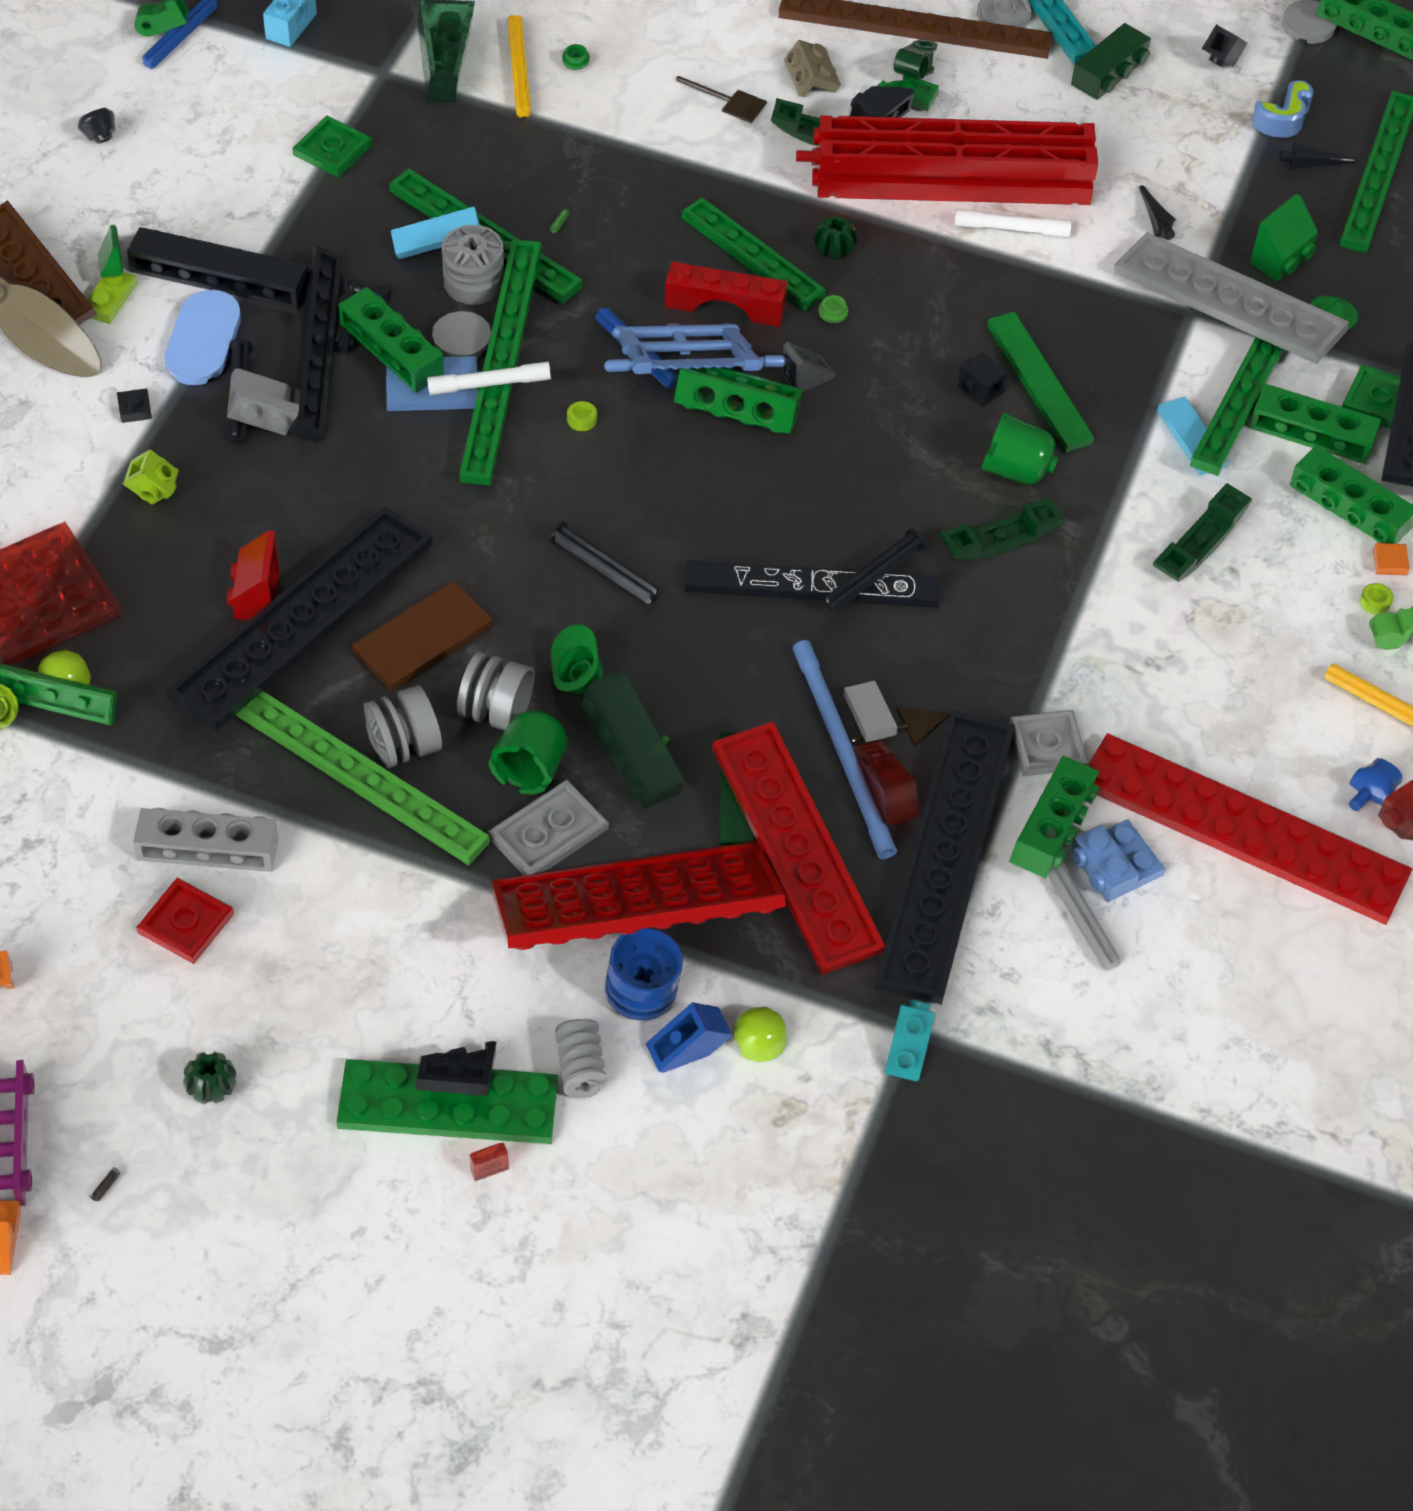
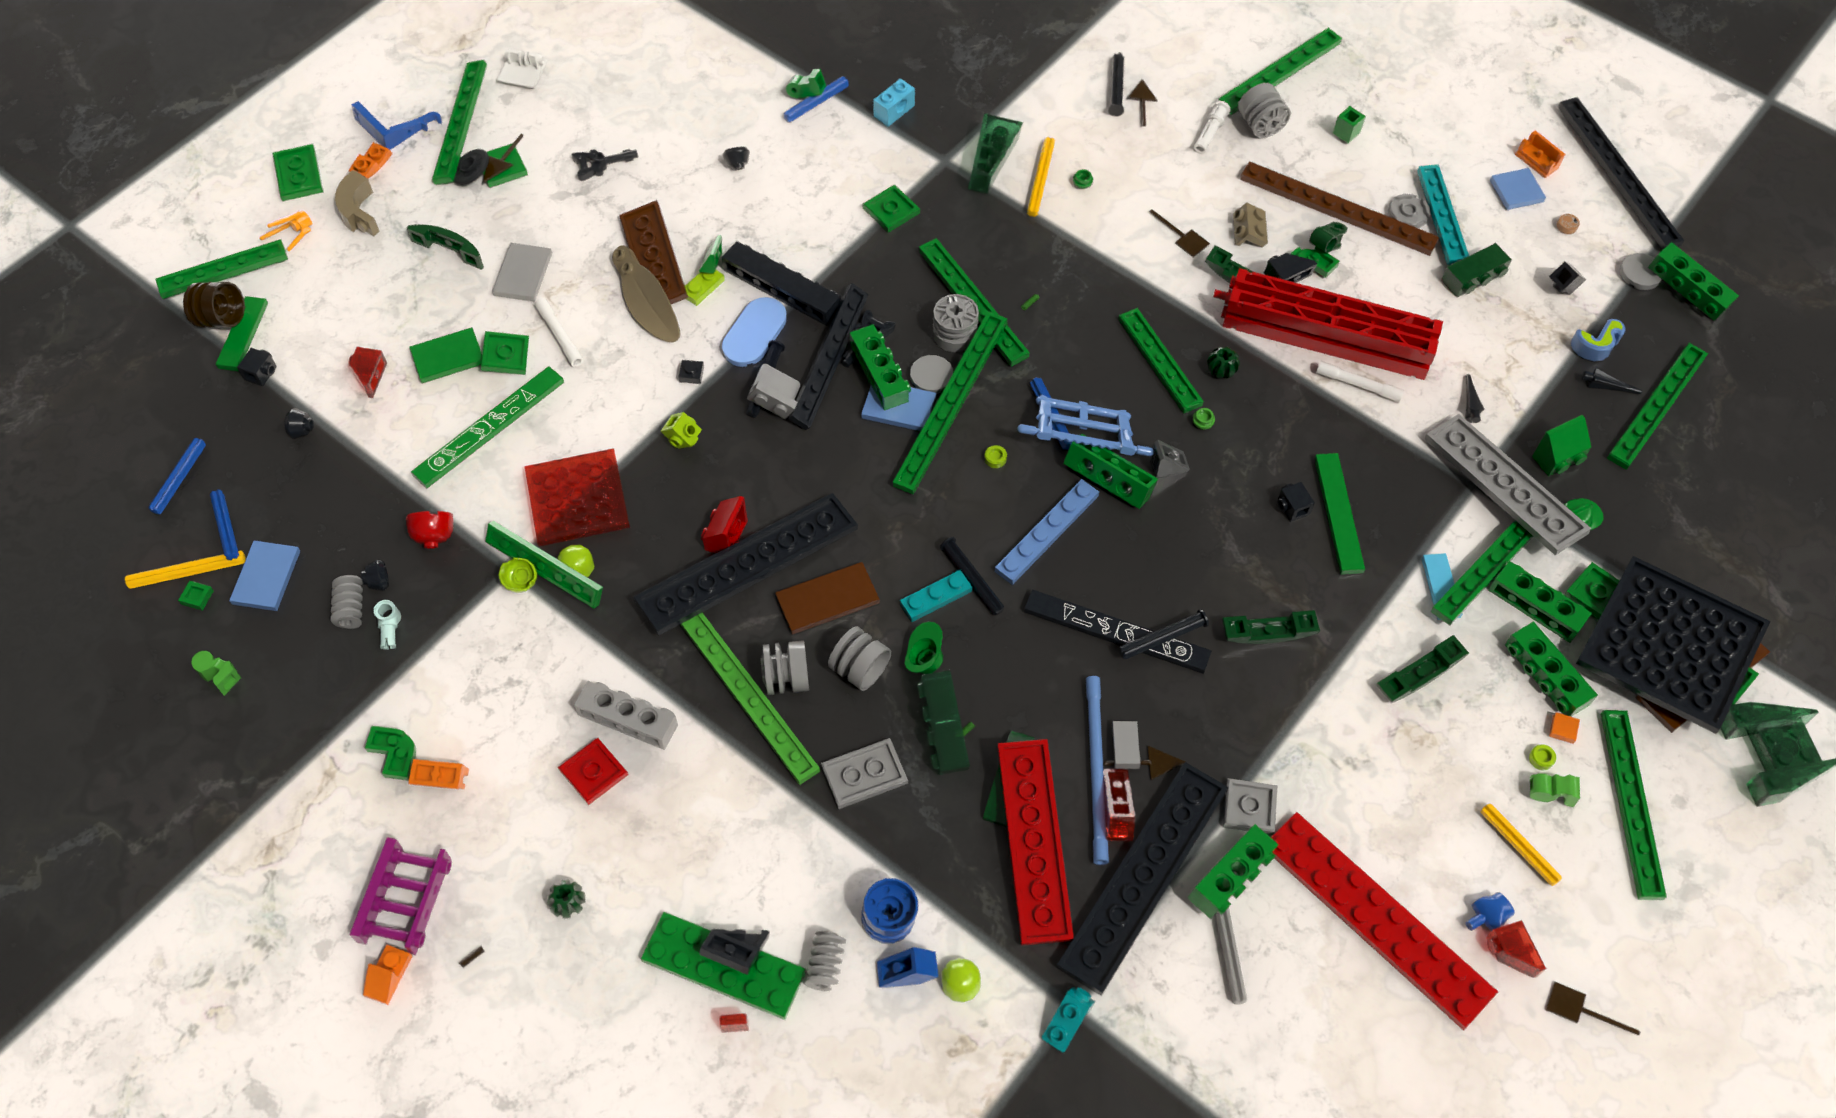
camera: 20 degrees right, 5 degrees up
(430, 233) = (932, 291): medium azure tile -> none
(524, 373) = (960, 417): white piece -> none
(529, 751) = (868, 710): green cylinder -> none
(564, 599) = (935, 596): none -> teal plate
(636, 895) = (903, 848): red plate -> none
(680, 489) = (1046, 532): none -> medium blue plate
(758, 296) = (1150, 396): red arch -> none
(1020, 451) = (1304, 568): green cylinder -> none
(1116, 859) = (1270, 916): medium blue plate -> none

